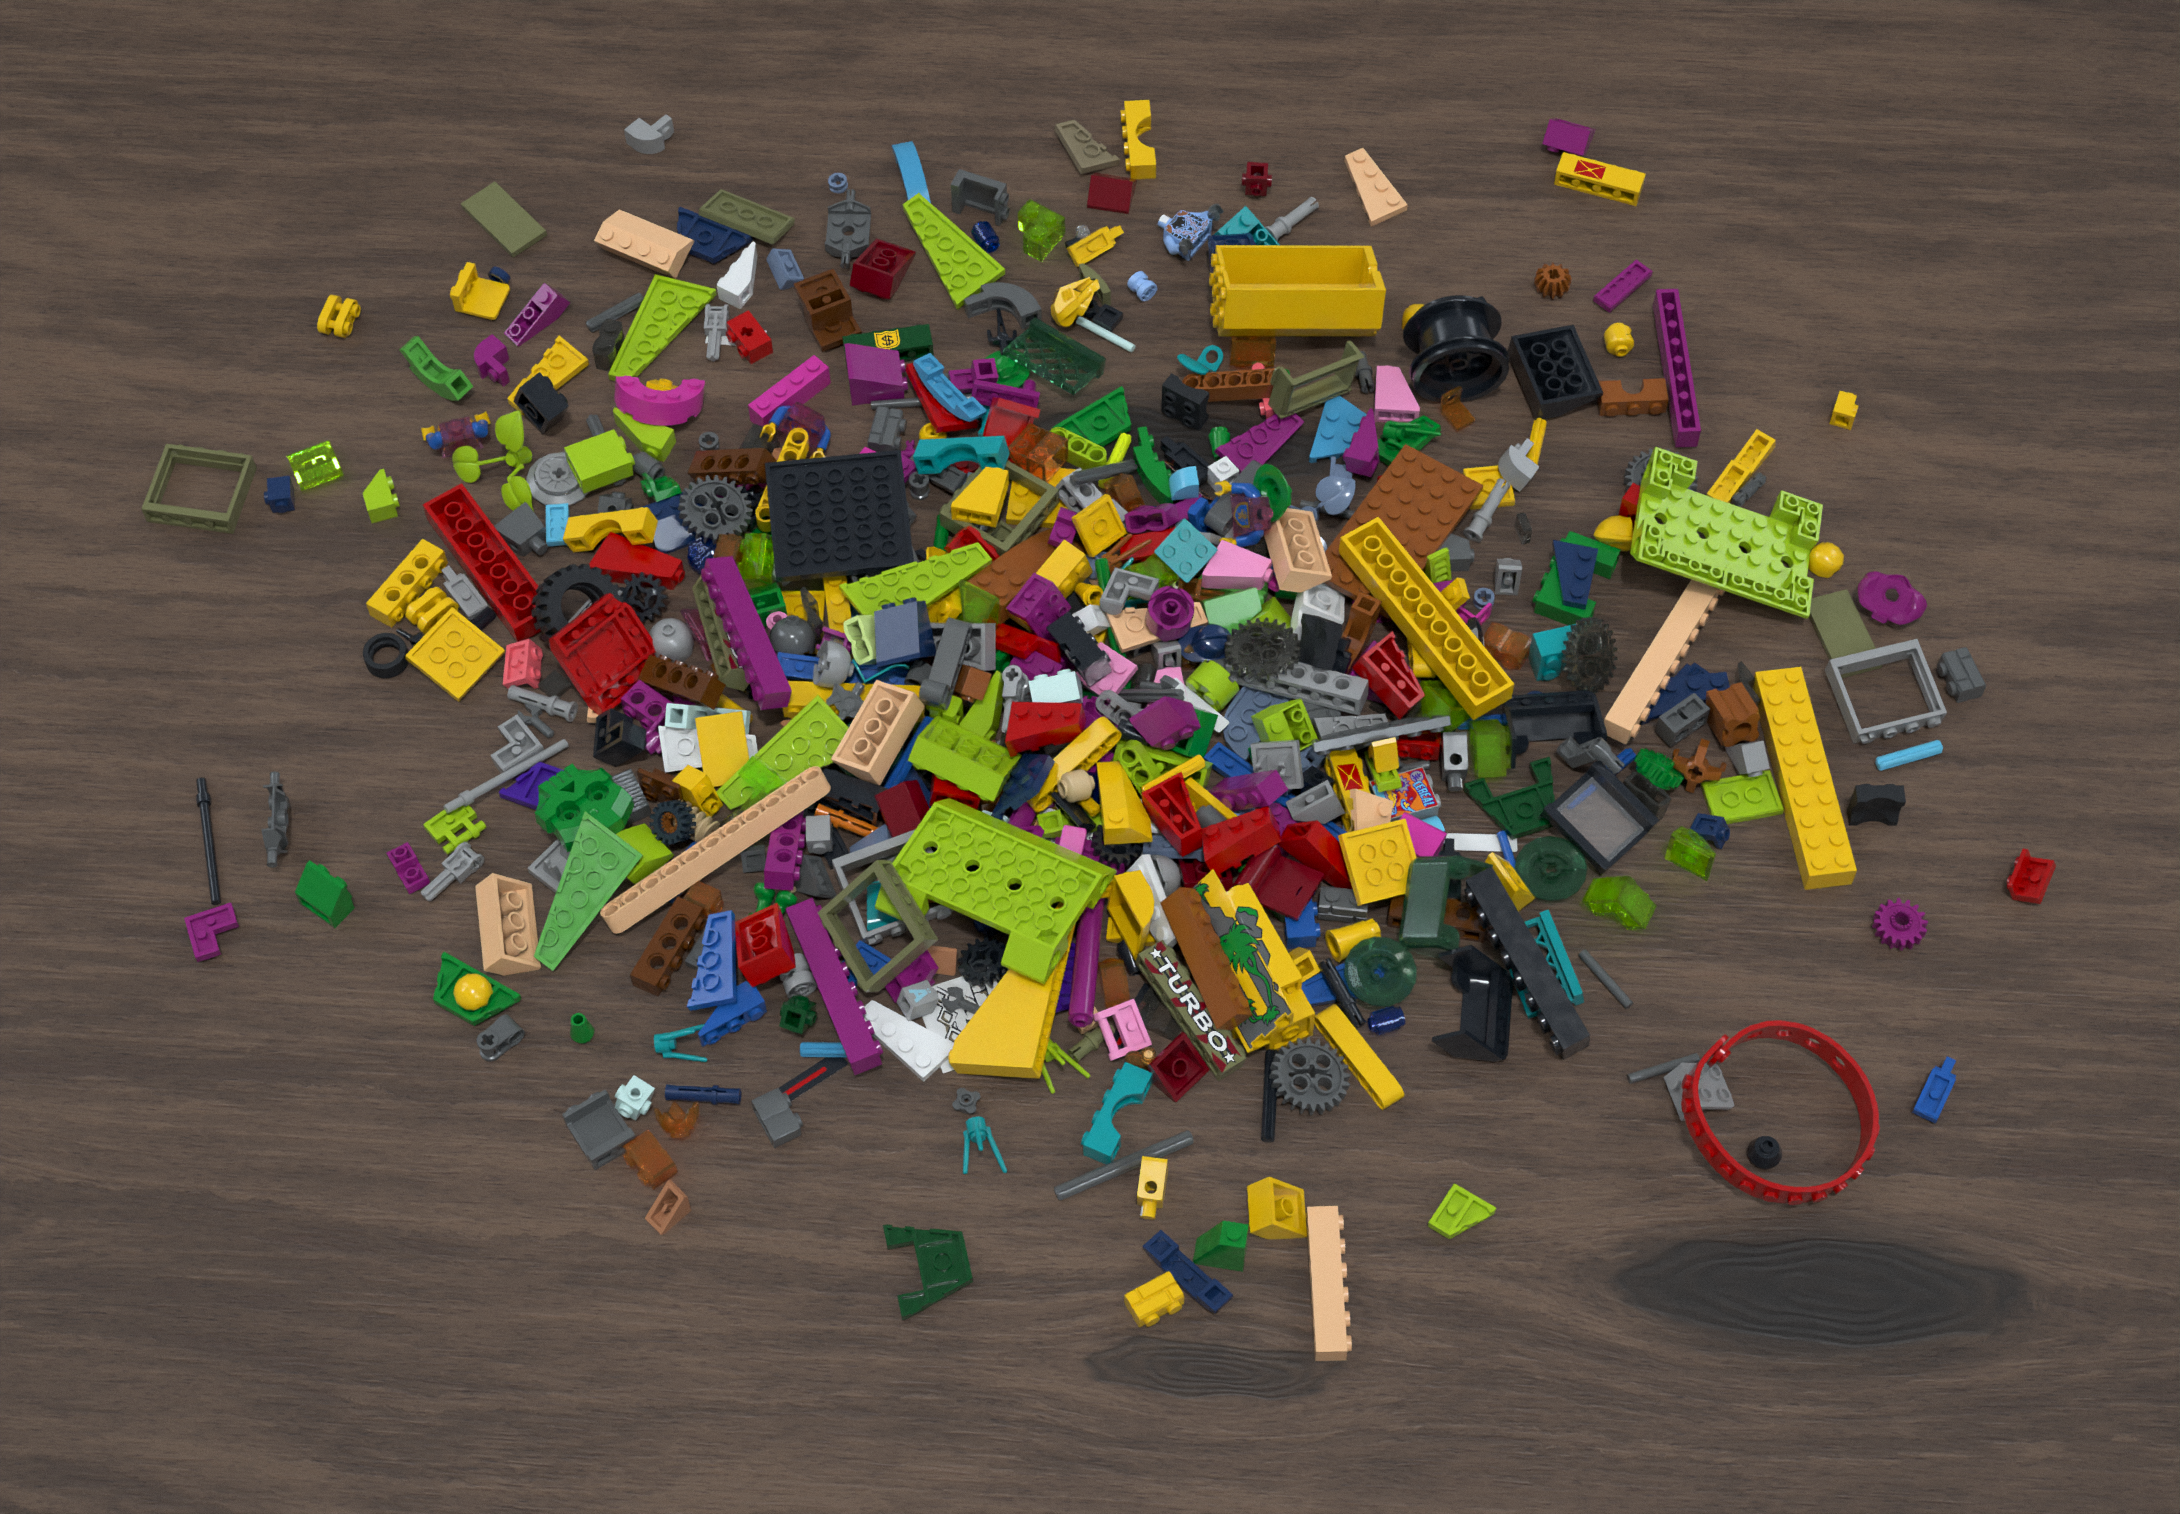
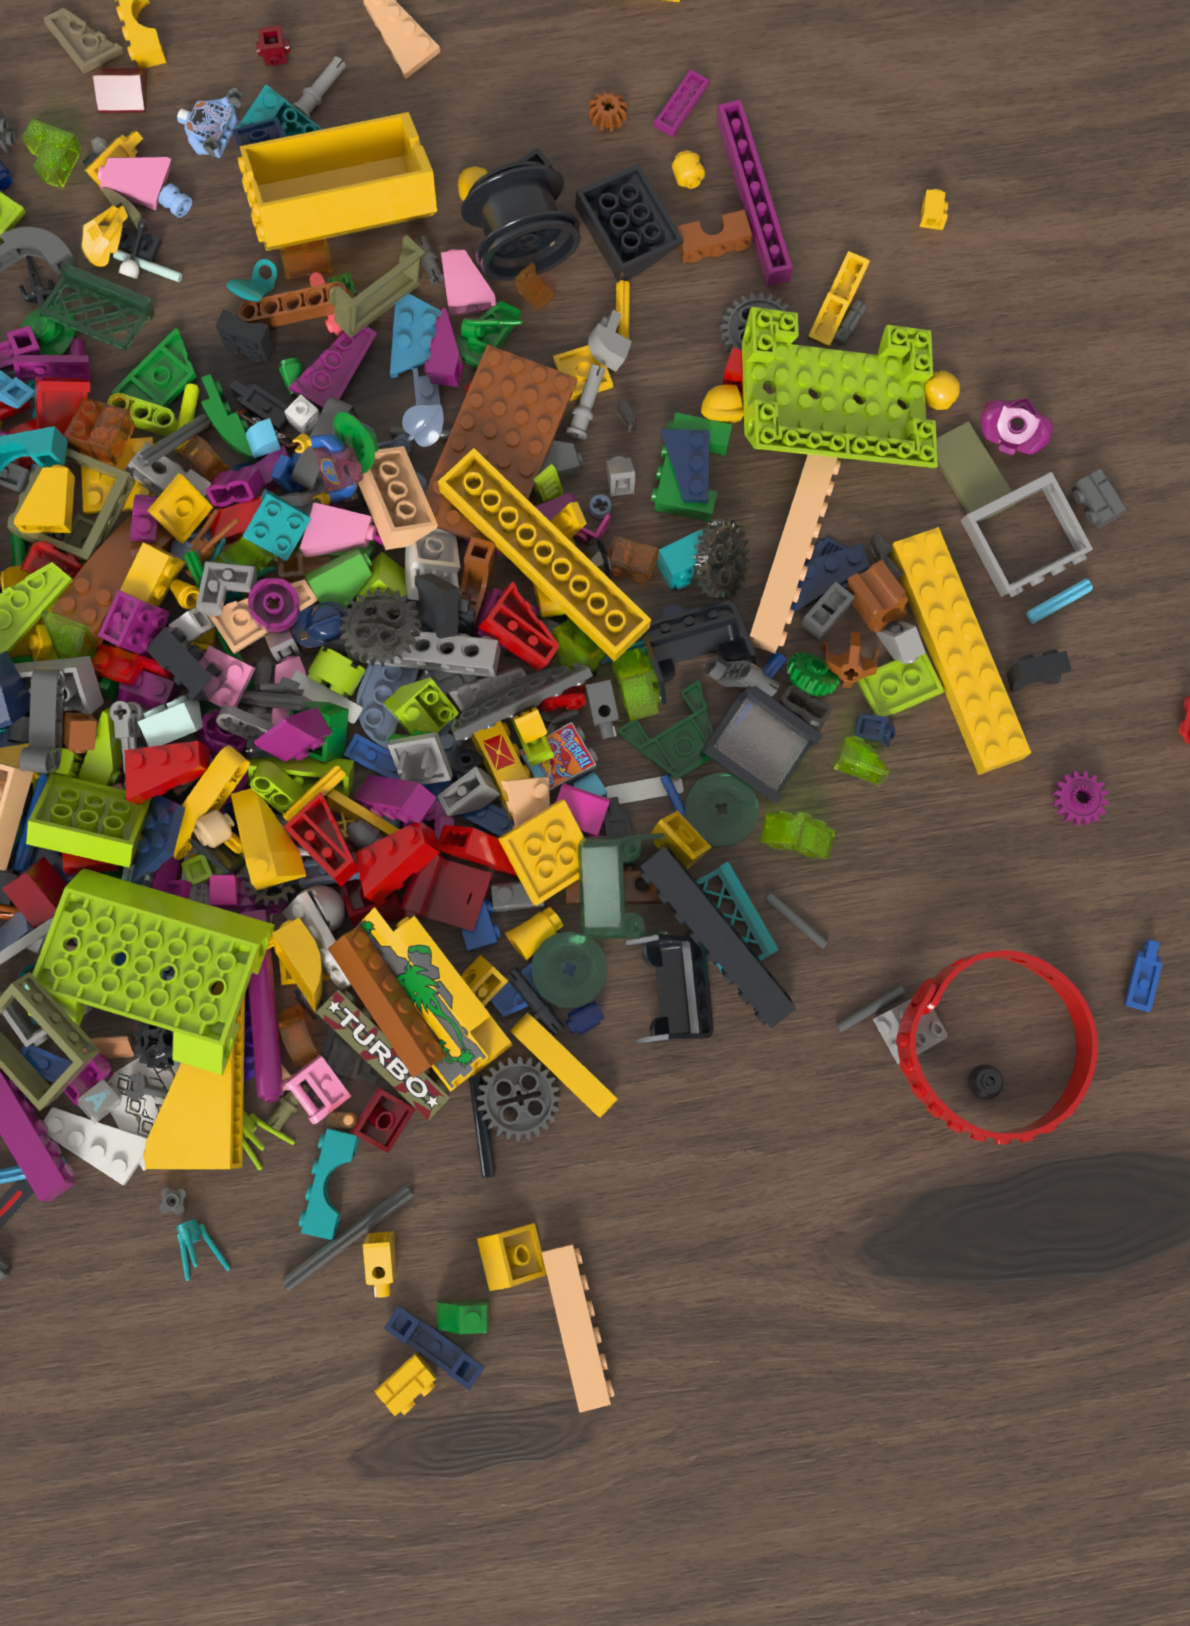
camera: 15 degrees left, 20 degrees up
(941, 1264) = (181, 1389): dark green wing -> none
(1090, 332) = (130, 267): none -> hinge
(1112, 262) = (136, 178): none -> bright pink slope
(1459, 1212) = (695, 1217): lime wing -> none

